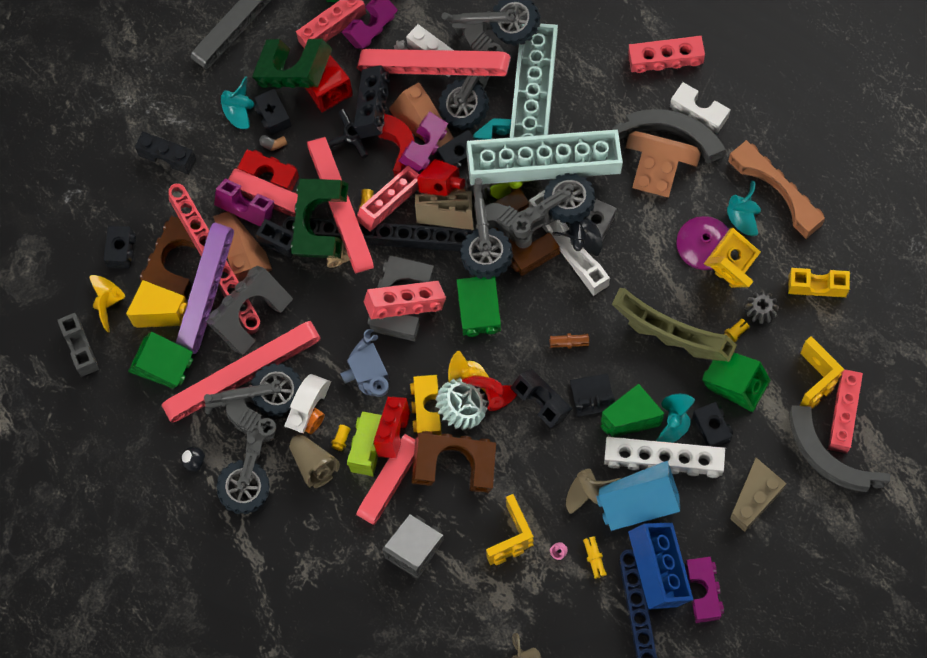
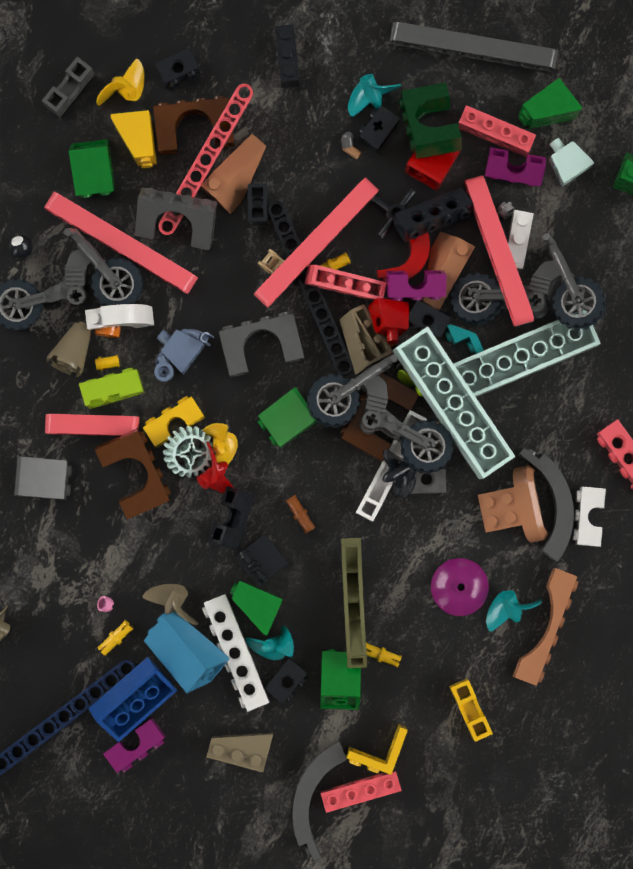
camera: 55 degrees right, 15 degrees up
(205, 287) = (172, 168): medium lavender beam -> none
(229, 197) = (273, 140): magenta arch -> none
(251, 186) = (297, 172): coral beam -> none
(257, 164) = (321, 175): red arch -> none
(311, 194) = (264, 232): dark green arch -> none
(394, 417) = (123, 404): red arch -> none
(404, 299) = (265, 352): coral brick -> none
(515, 545) = (86, 566): yellow bracket -> none
(733, 270) = (443, 626): yellow bracket -> none
(755, 308) = (414, 668): flat silver gear -> none

